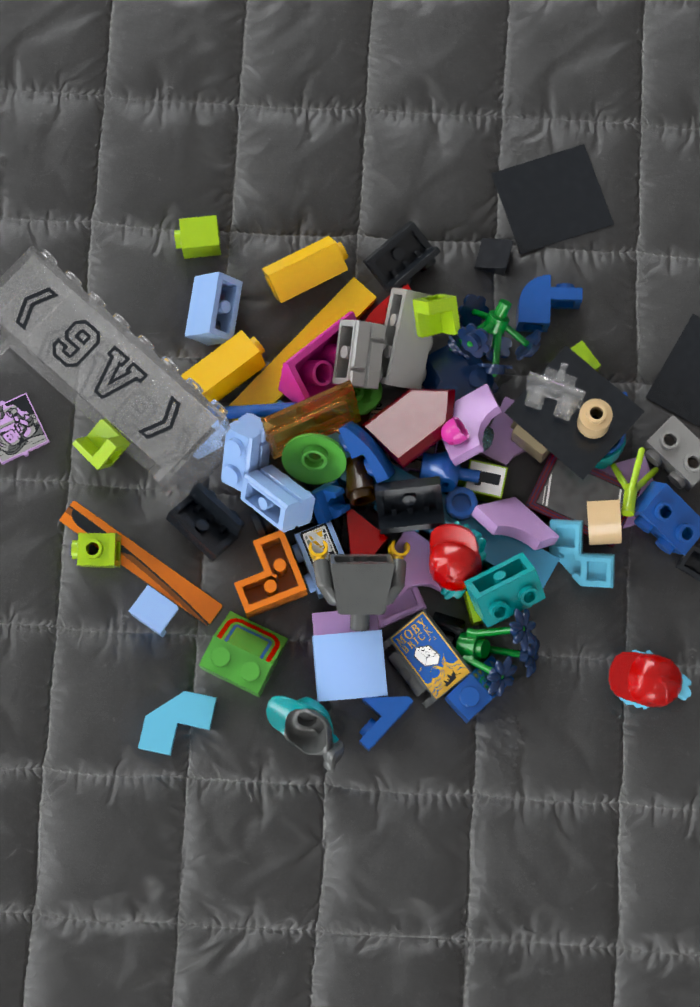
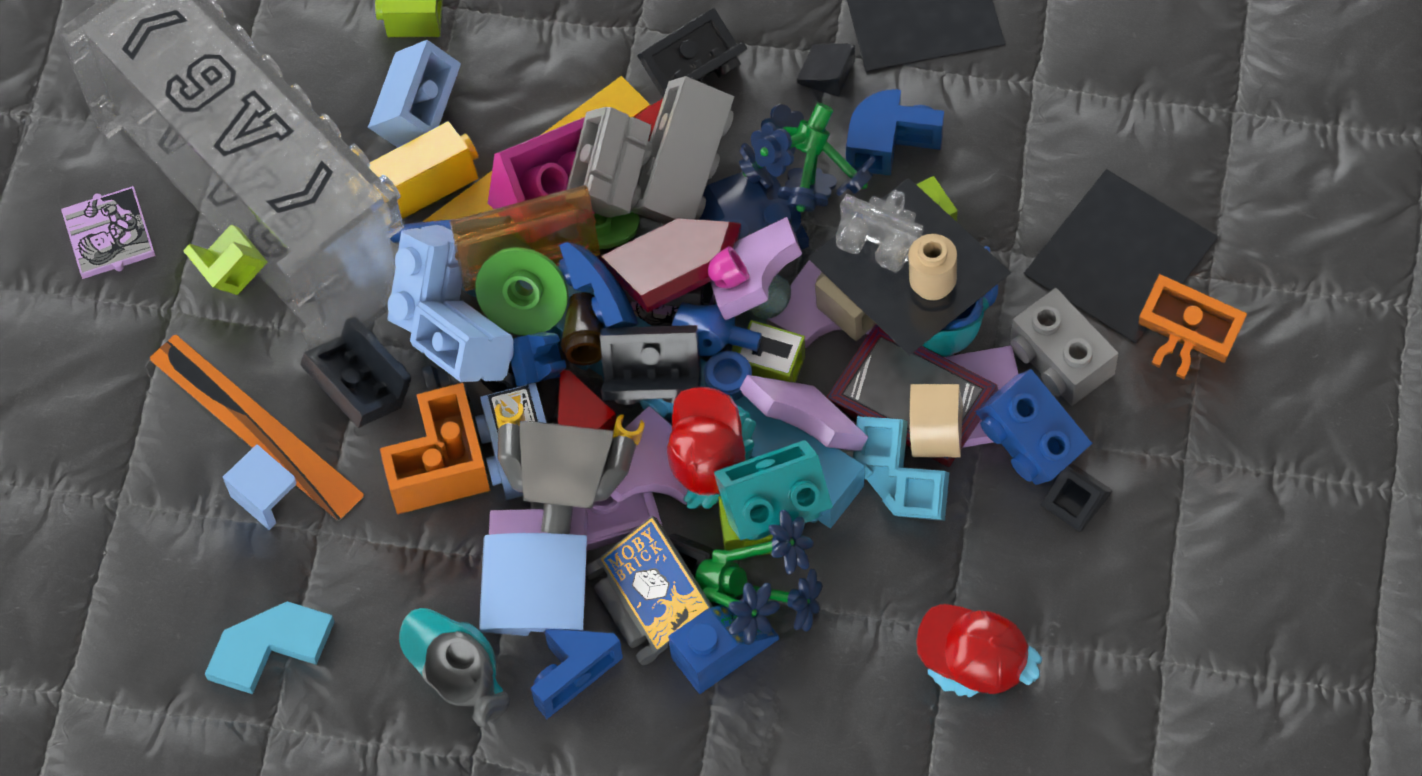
camera: 10 degrees right, 15 degrees down
(108, 554) = (207, 404): lime brick -> none
(243, 653) = (379, 561): bright green slope -> none
(306, 268) = (554, 56): yellow brick -> none
(436, 315) = (723, 117): lime panel -> none
(633, 487) = (981, 378): lime plant -> none

